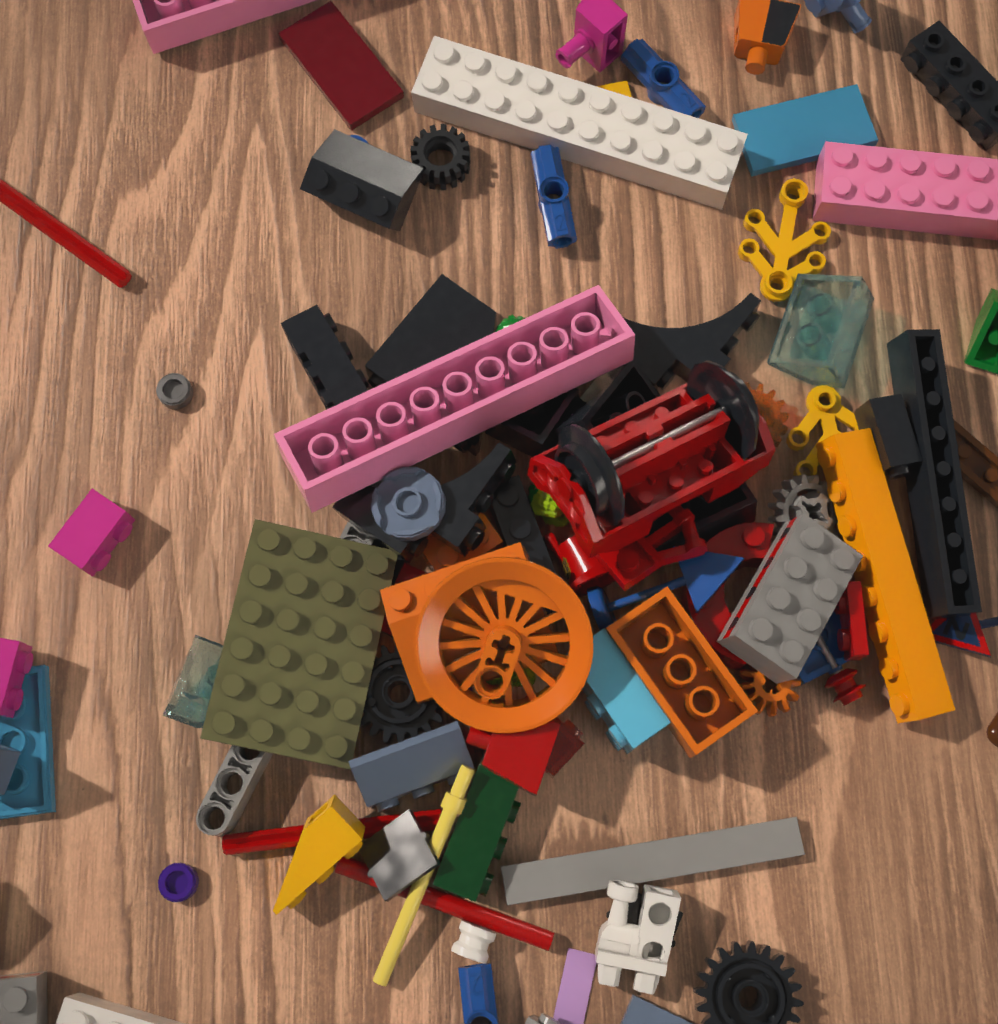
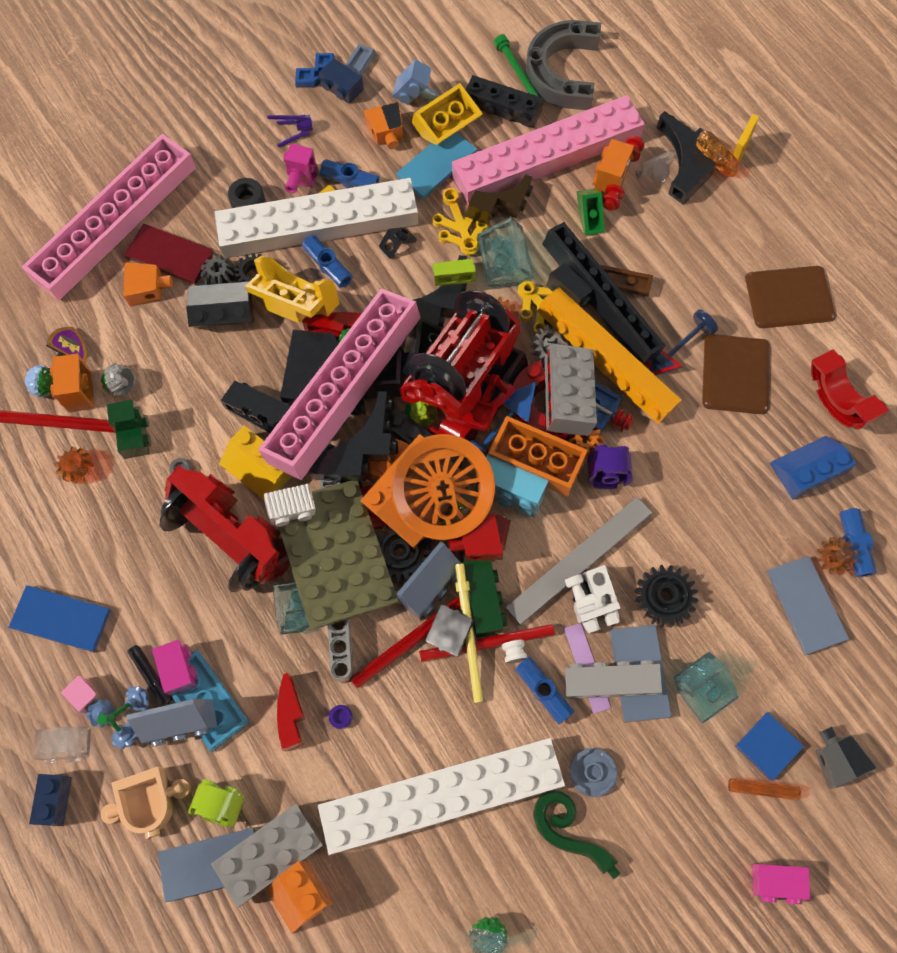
camera: 30 degrees left, 5 degrees down
(24, 304) = (74, 465): none -> clear orange gear
(62, 159) = (39, 381): none -> piece
(92, 533) = (182, 565): dark pink brick -> none
(97, 184) = (72, 383): none -> orange brick
(109, 834) = (288, 714): none -> red slope
(126, 124) = (67, 342): none -> shield
(137, 294) = (130, 428): none -> dark green brick
(162, 214) = (118, 380): none -> light grey piece
(167, 470) = (206, 504): none -> red piece
(256, 423) = (249, 467): none -> yellow slope
(273, 541) = (289, 505): none -> white brick
(279, 90) = (144, 283): none -> orange torso
(324, 840) = (406, 647): yellow slope -> none
(391, 128) = (218, 271): none -> dark grey gear
(408, 504) = (349, 447): sand blue tile -> none
(469, 217) = (289, 294): none -> yellow piece
(500, 20) = (245, 187): none -> black tyre
(503, 293) = (334, 323): none -> red slope
(678, 214) = (398, 237): none -> black bracket
(725, 315) = (454, 272): none -> lime panel
(781, 749) = (609, 467): none -> dark purple brick
(853, 633) = (609, 389): red plate -> none
(861, 63) = (446, 115): none -> yellow slope
(879, 251) = (510, 202): none -> dark brown arch

